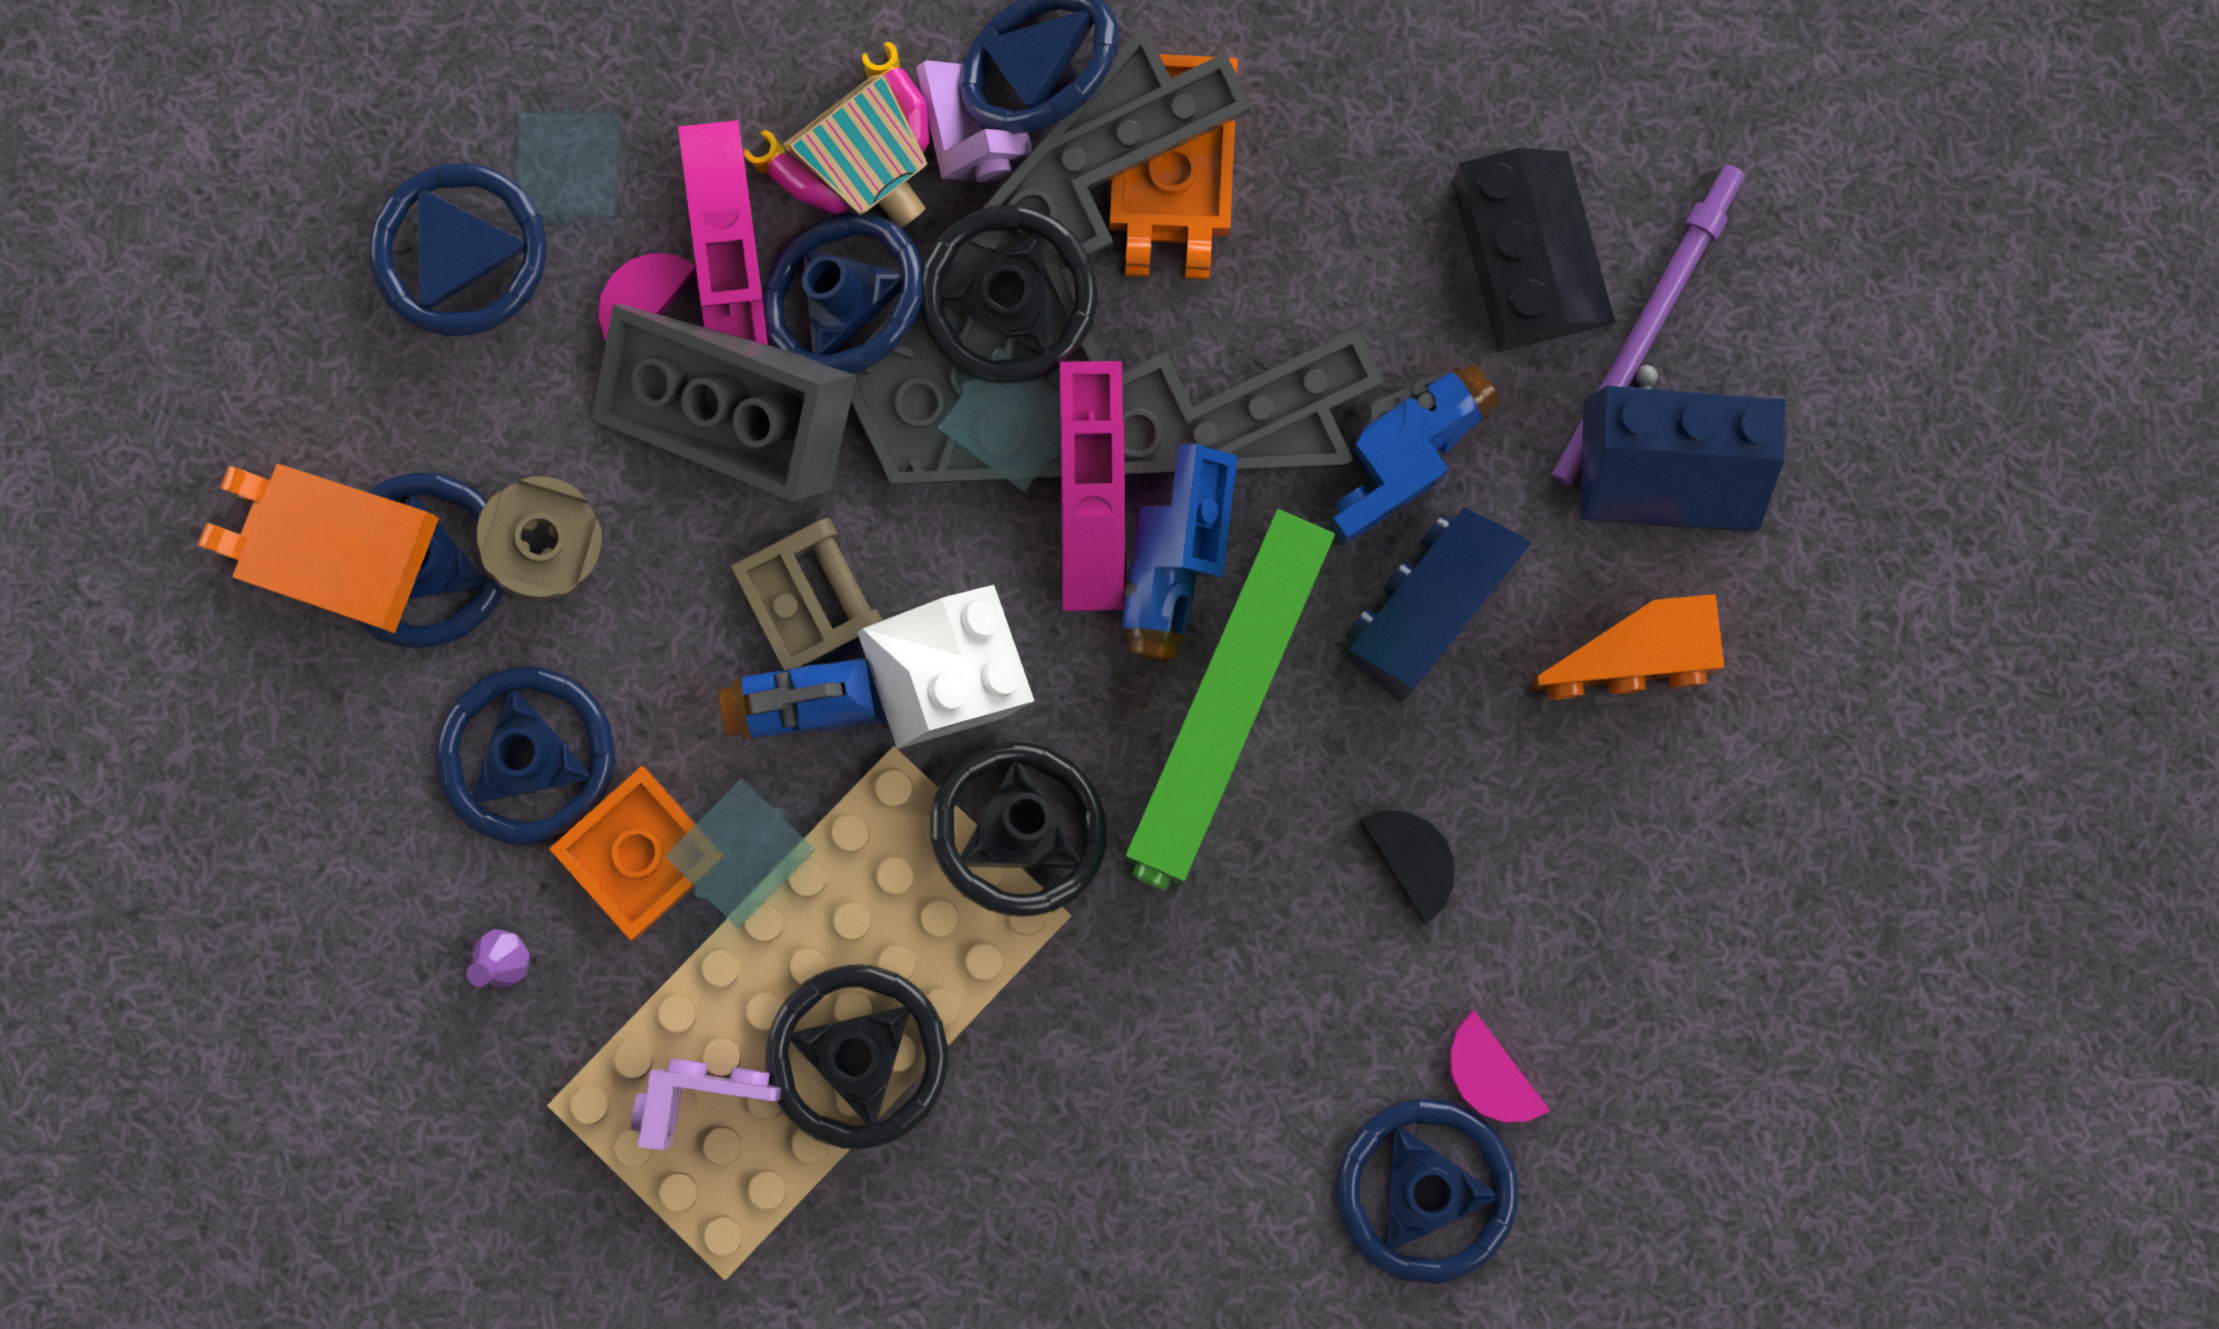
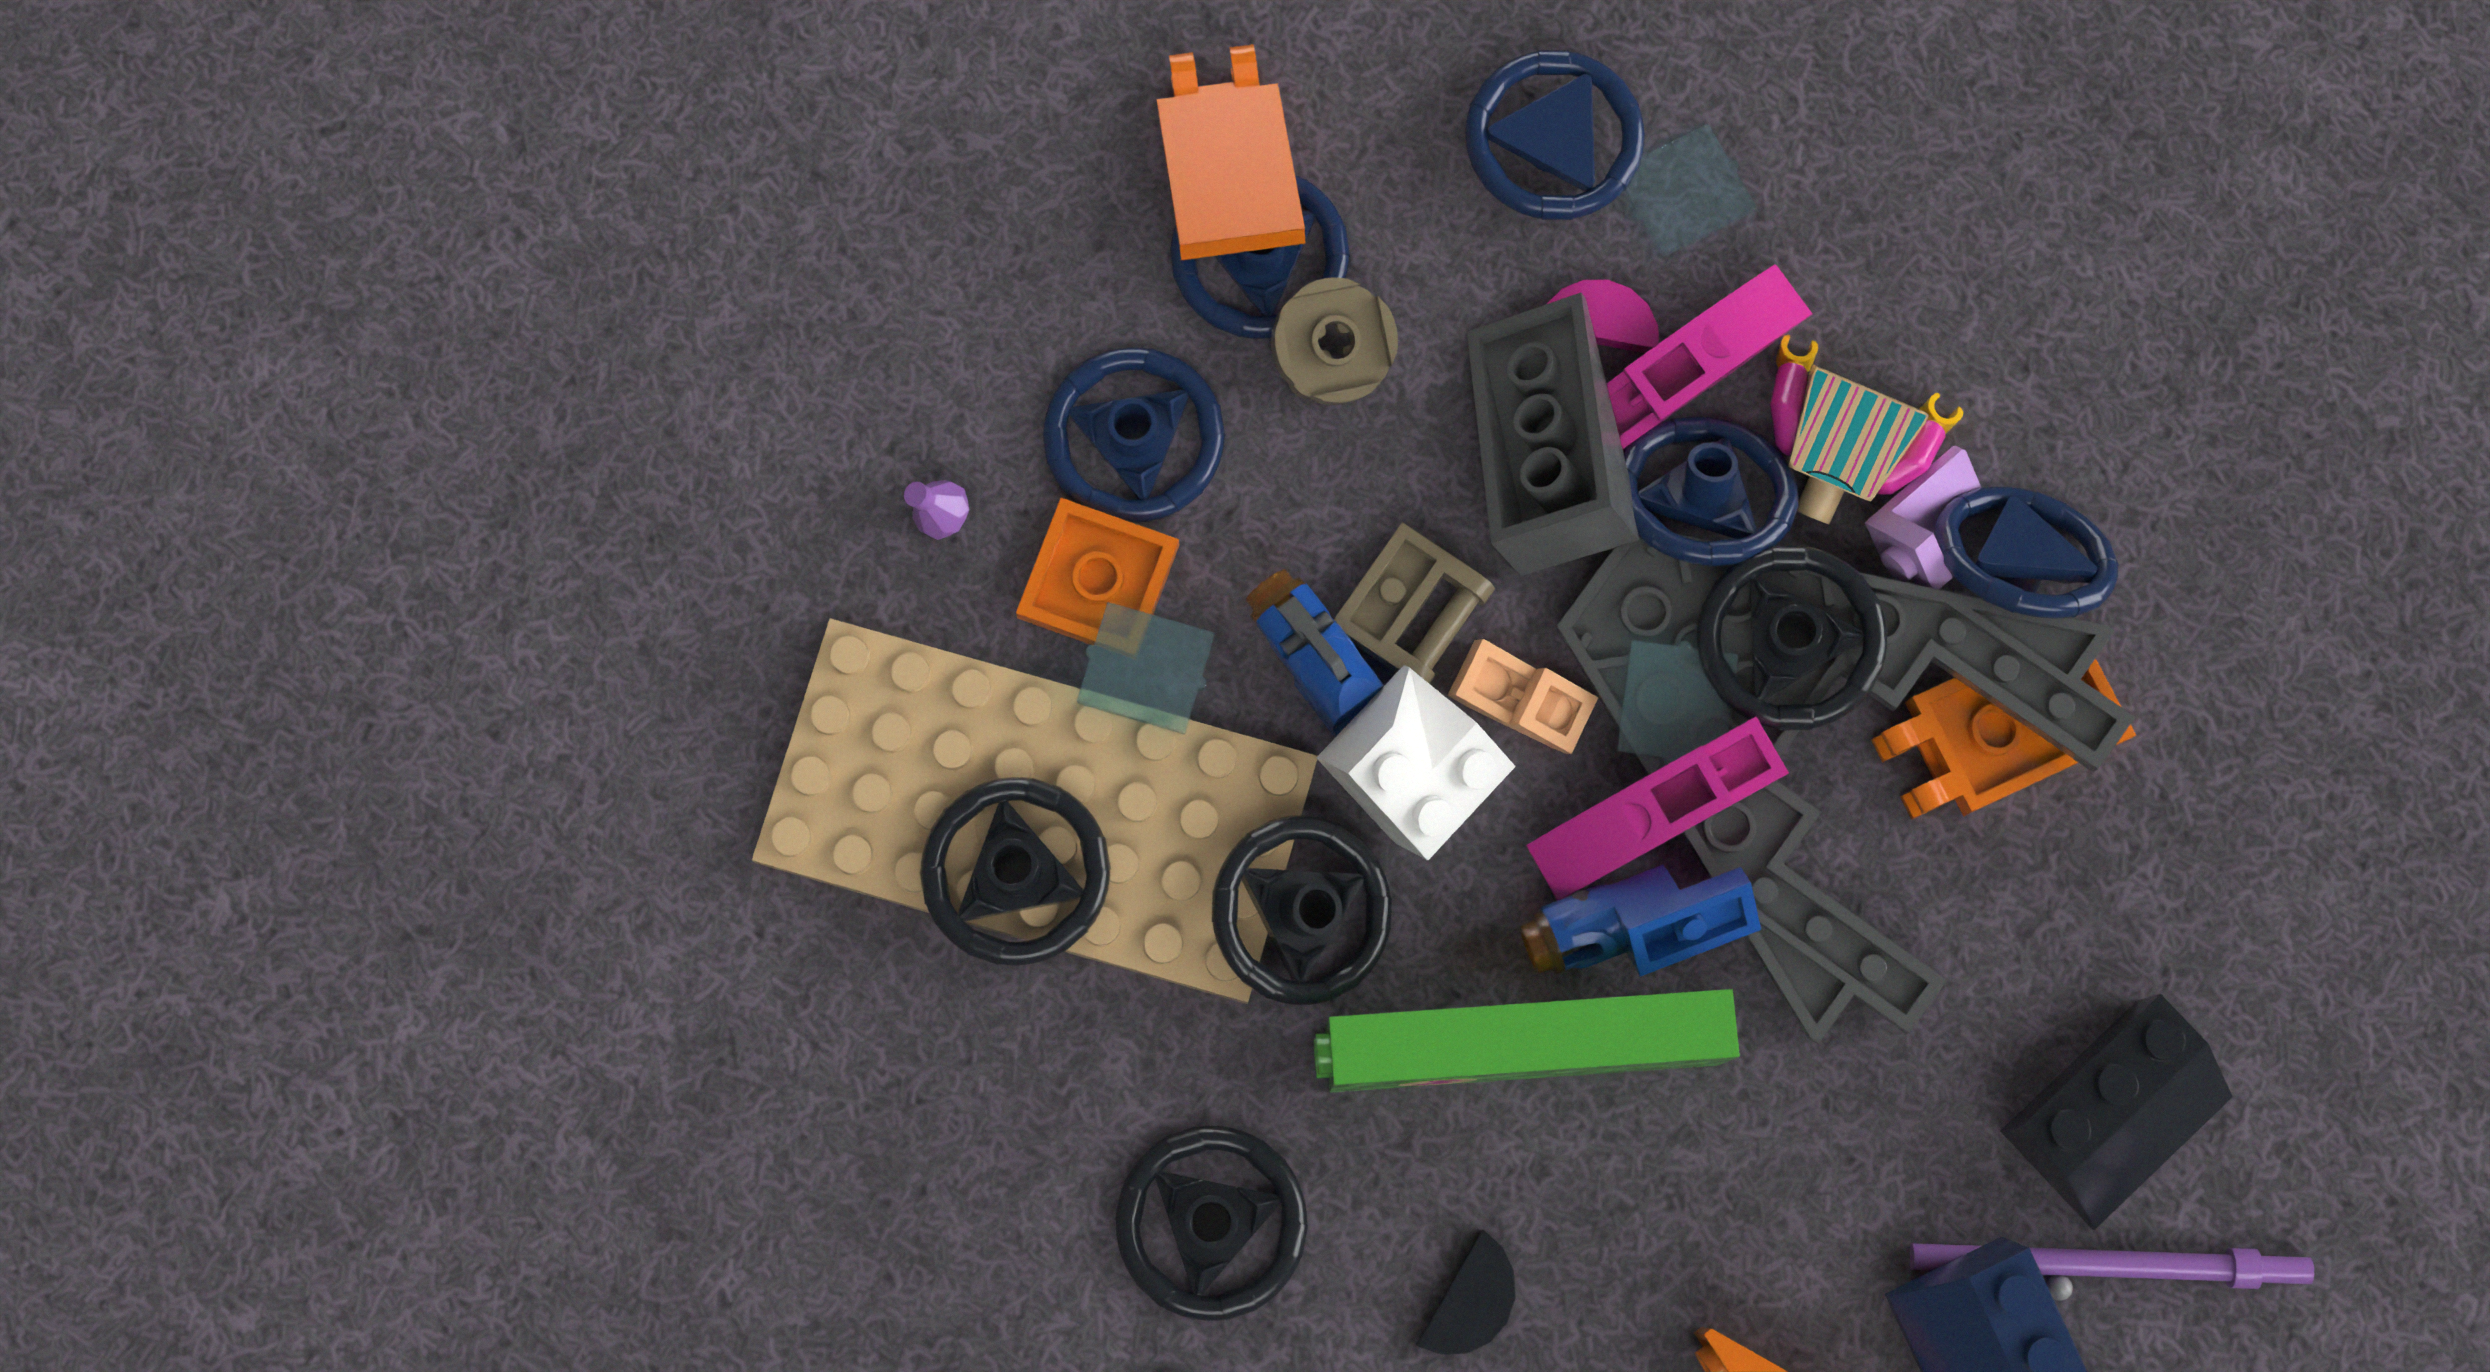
camera: 60 degrees right, 5 degrees down
(658, 1109) = (877, 715): lavender bracket -> none
(934, 544) = (1522, 696): none -> light nougat slope
(1238, 1042) = (1211, 1223): none -> black piece
(1403, 444) = (1864, 1083): blue plate -> none
(1432, 600) = (1728, 1189): dark blue slope -> none

